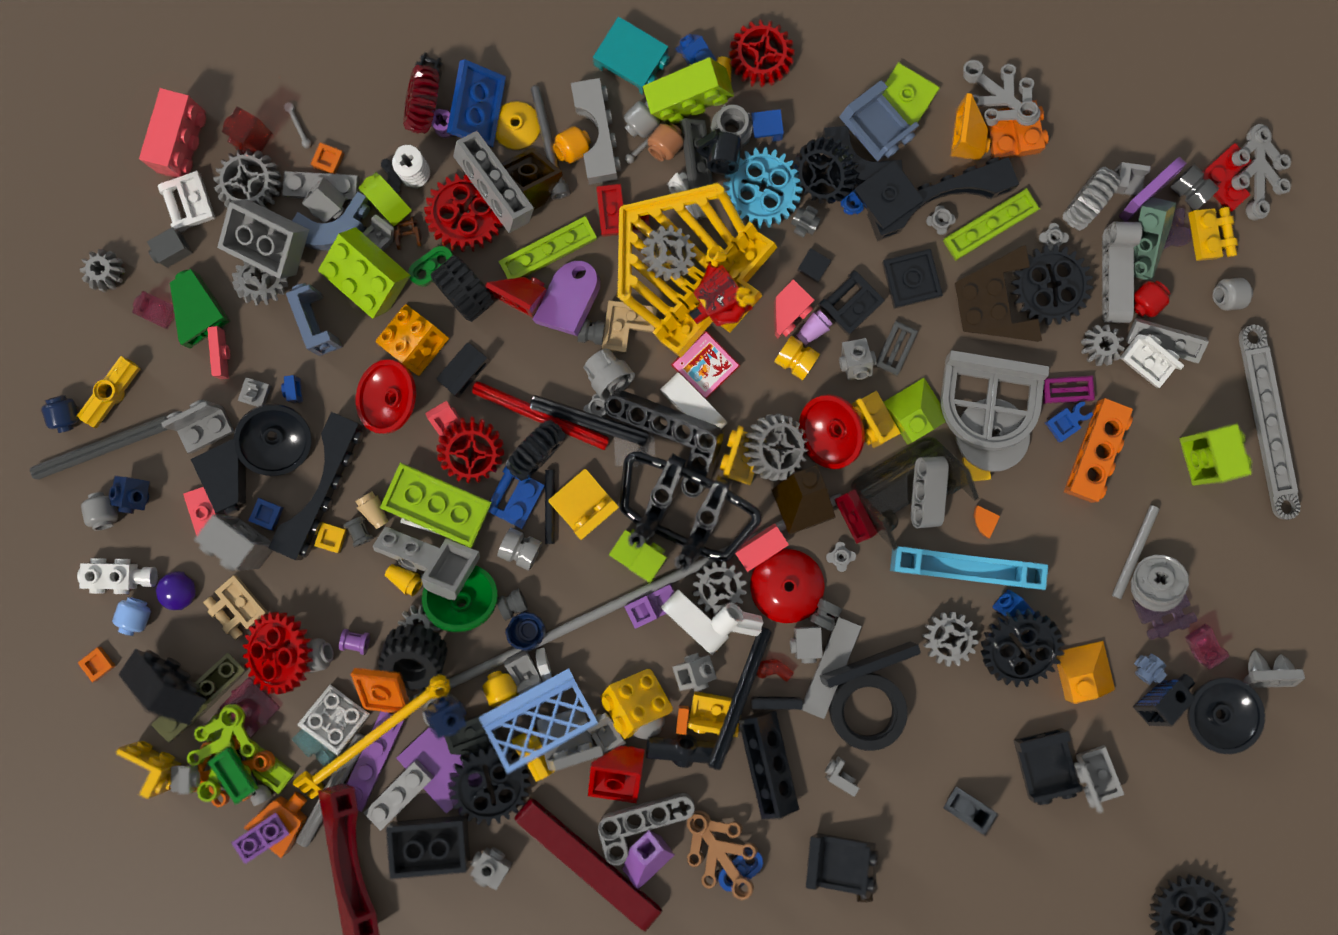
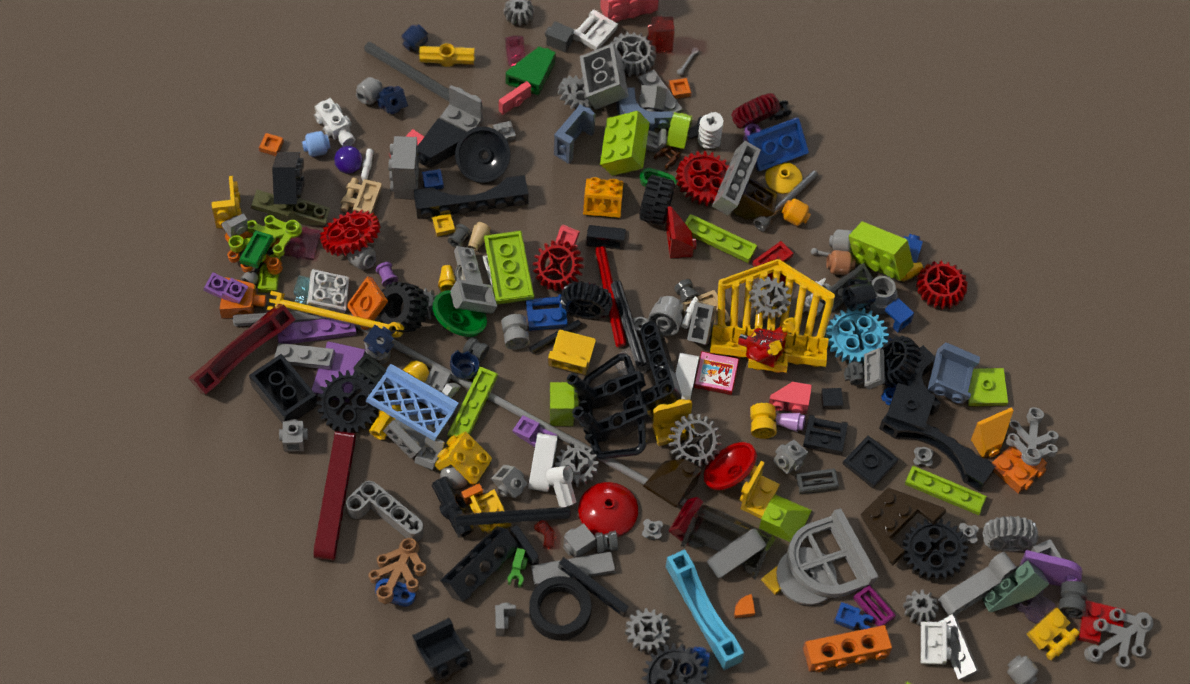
camera: 50 degrees right, 25 degrees down
(195, 573) = (367, 164): none -> white piece
(292, 389) = (522, 149): blue plate -> none
(385, 396) = (556, 199): red dish -> none
(568, 298) = (697, 265): medium lavender tile -> none
(576, 650) = (473, 402): none -> lime tile
(589, 102) = (799, 233): light grey arch -> none
(617, 774) = (407, 476): red slope -> none
(621, 346) = (688, 314): none -> white piece
(631, 54) = (880, 208): teal panel -> none
(645, 344) = (701, 323): none -> light grey brick
(646, 858) = (364, 525): medium lavender slope -> none
(761, 547) = (622, 475): coral tile -> none
(793, 721) = (520, 562): none -> bright green plate
(820, 200) = (874, 368): none -> light grey plate
(1151, 298) = (975, 617): red head -> none

